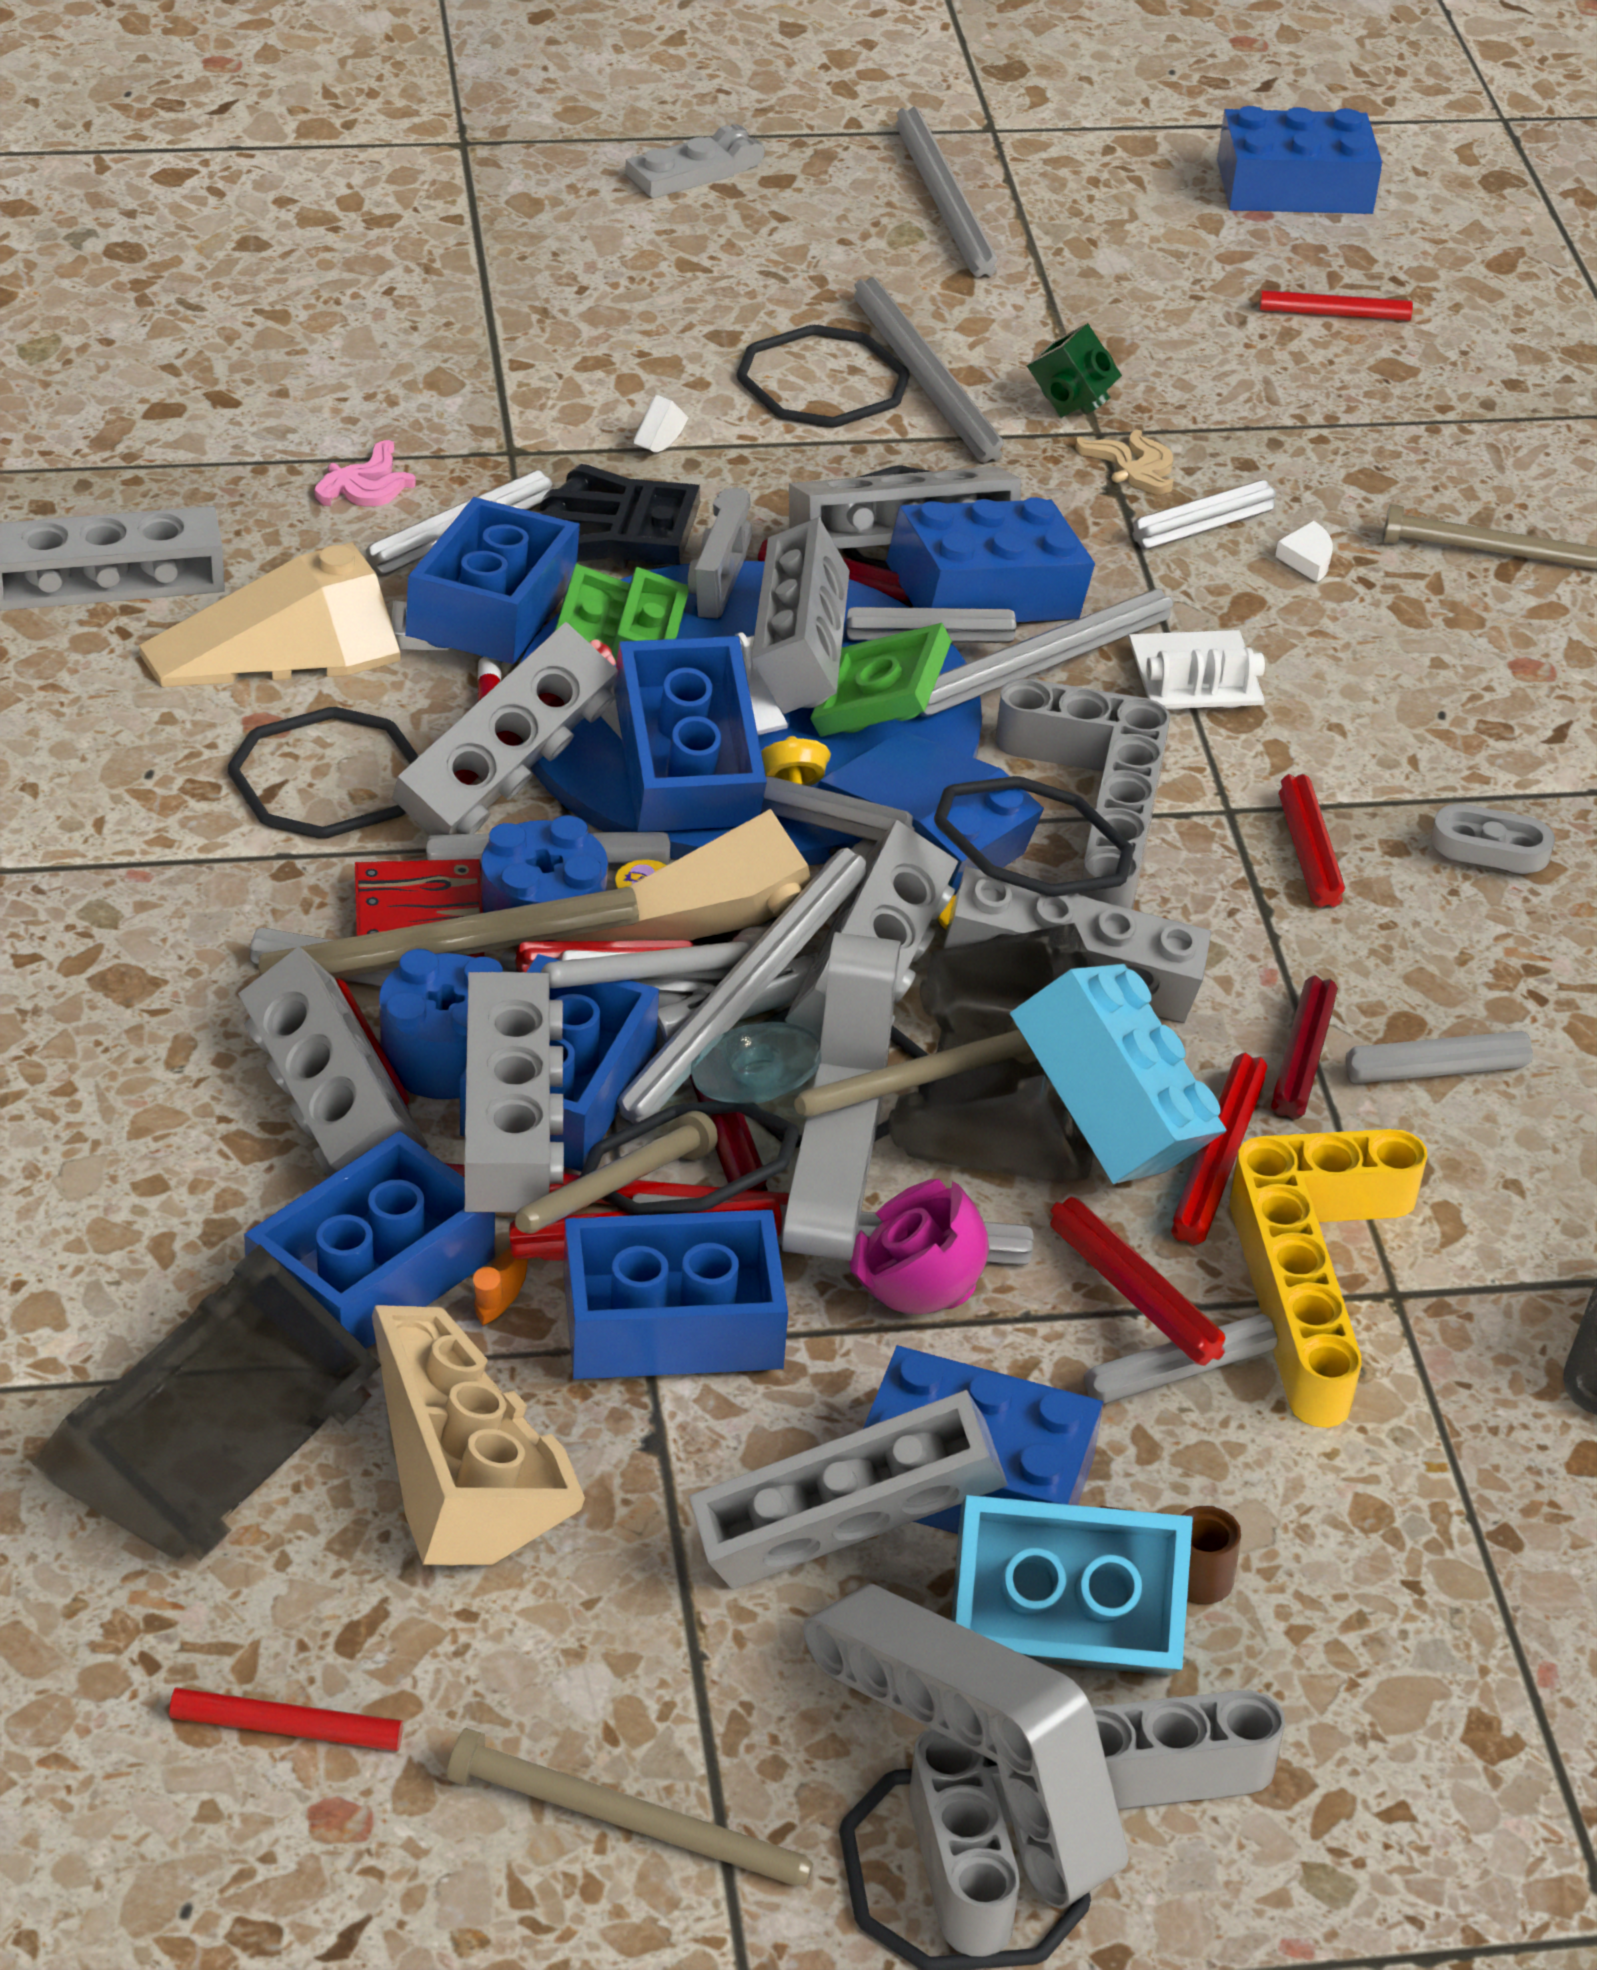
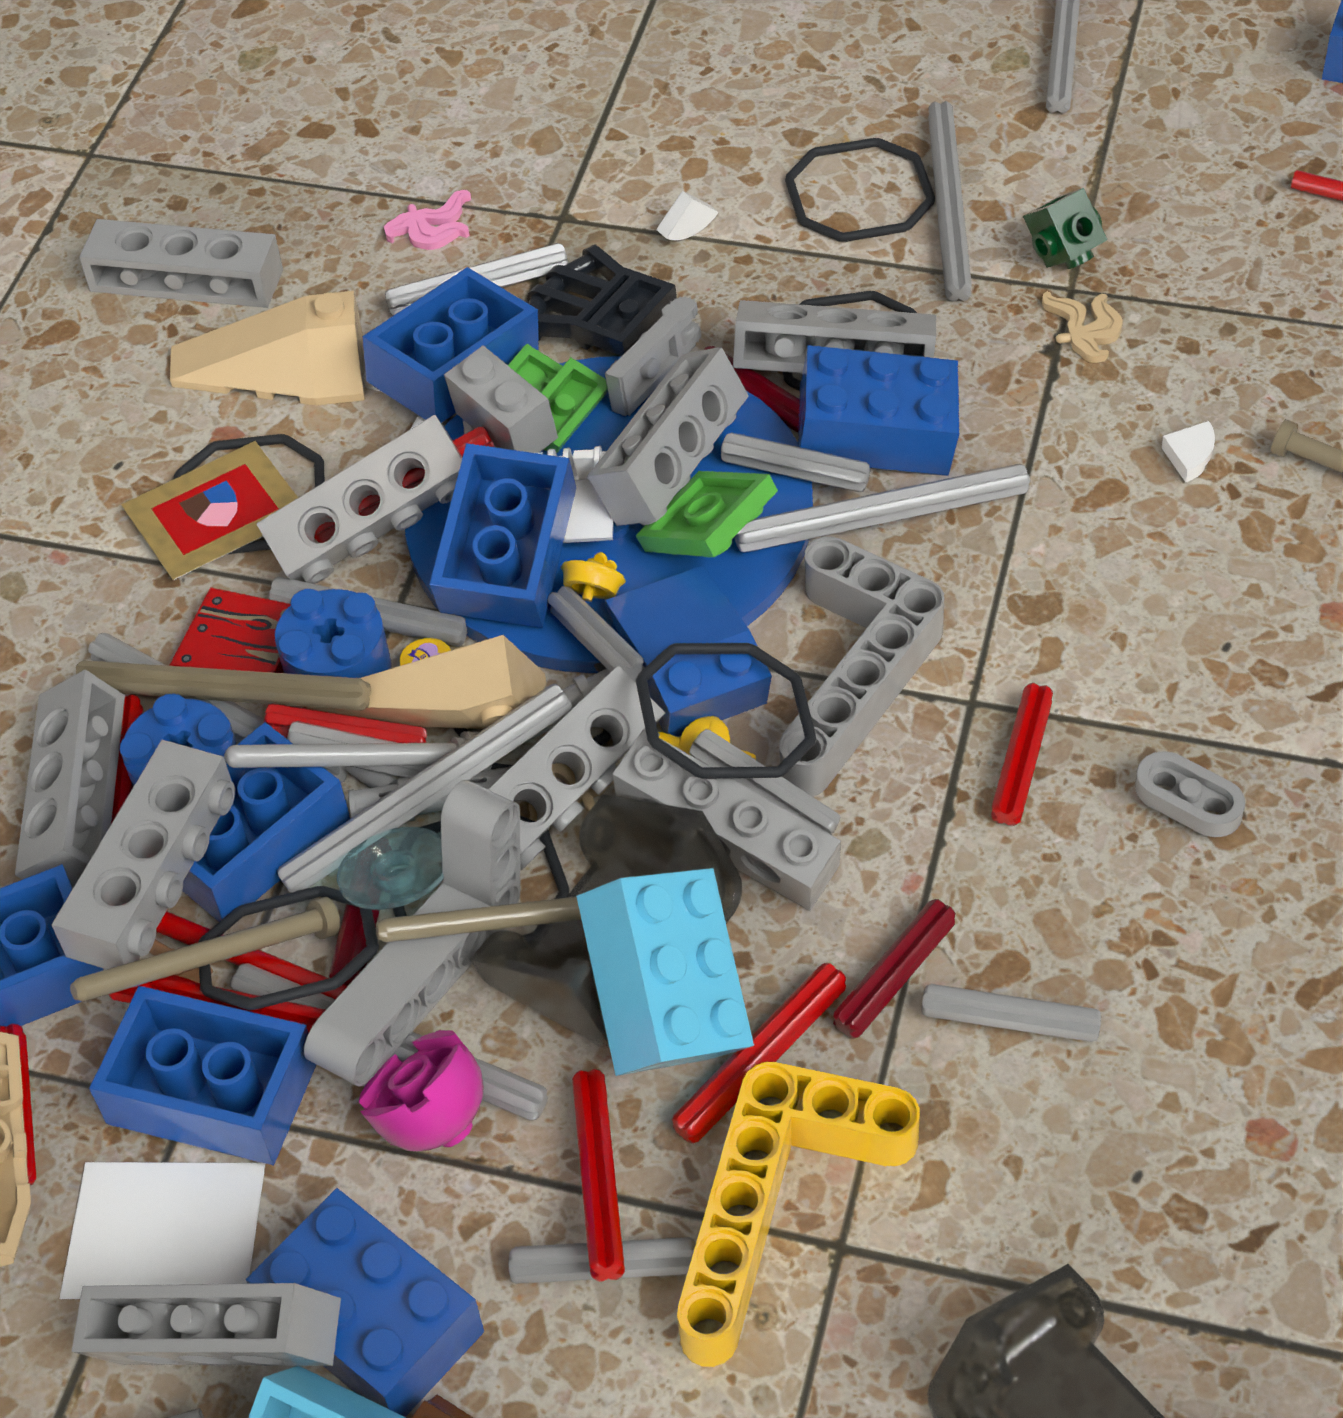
camera: 30 degrees right, 10 degrees up
(300, 792) = (210, 509): none -> sticker
(498, 1286) = (94, 1023): orange bar -> none
(606, 604) = (502, 402): none -> light grey brick
(673, 1447) = (163, 1224): none -> white sticker
(1198, 669) = (1016, 552): white hinge -> none
(1203, 514) = (1114, 393): axle -> none

